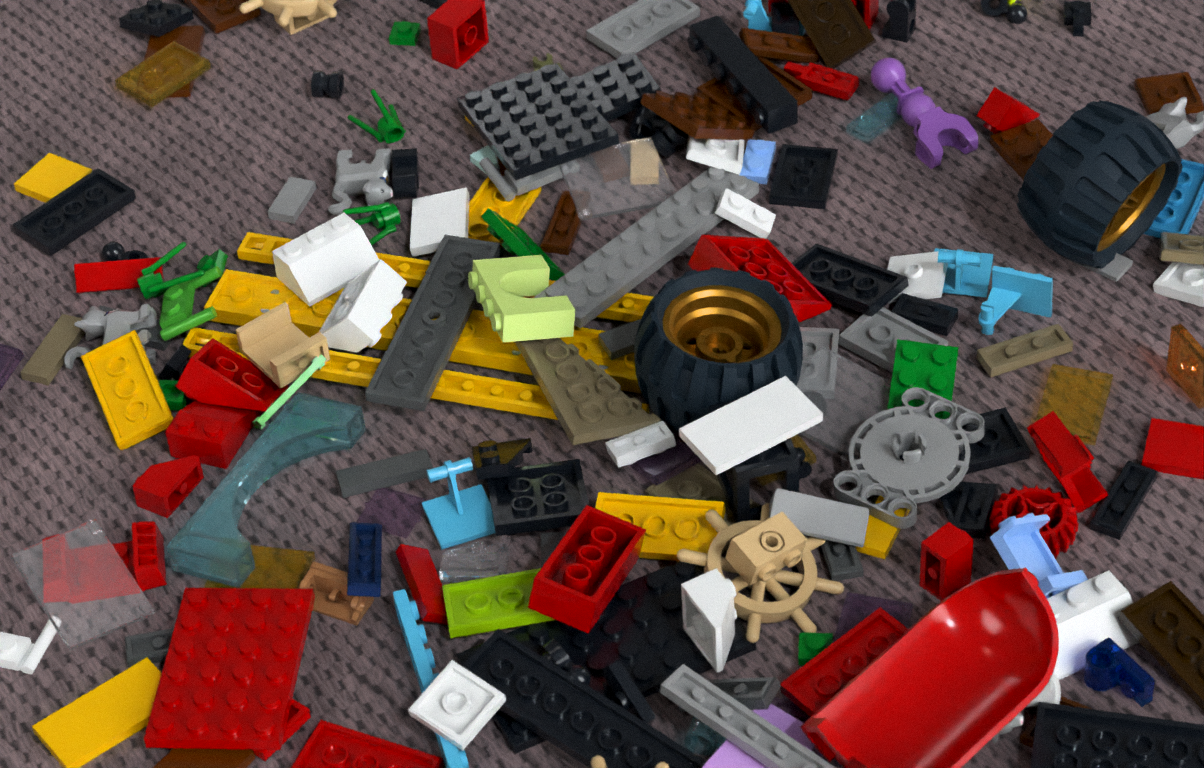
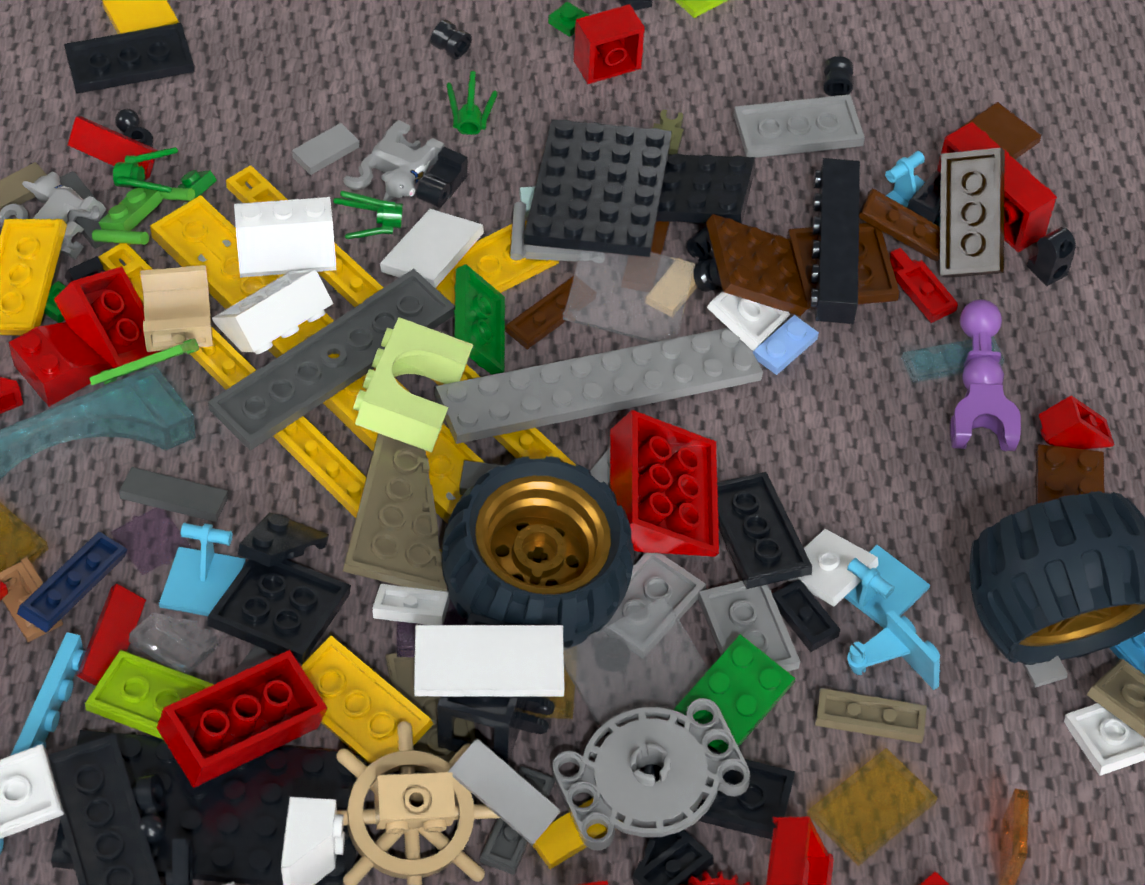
camera: 25 degrees right, 10 degrees up
(745, 213) = (719, 400): white plate -> none
(803, 176) = (817, 387): black tile -> none

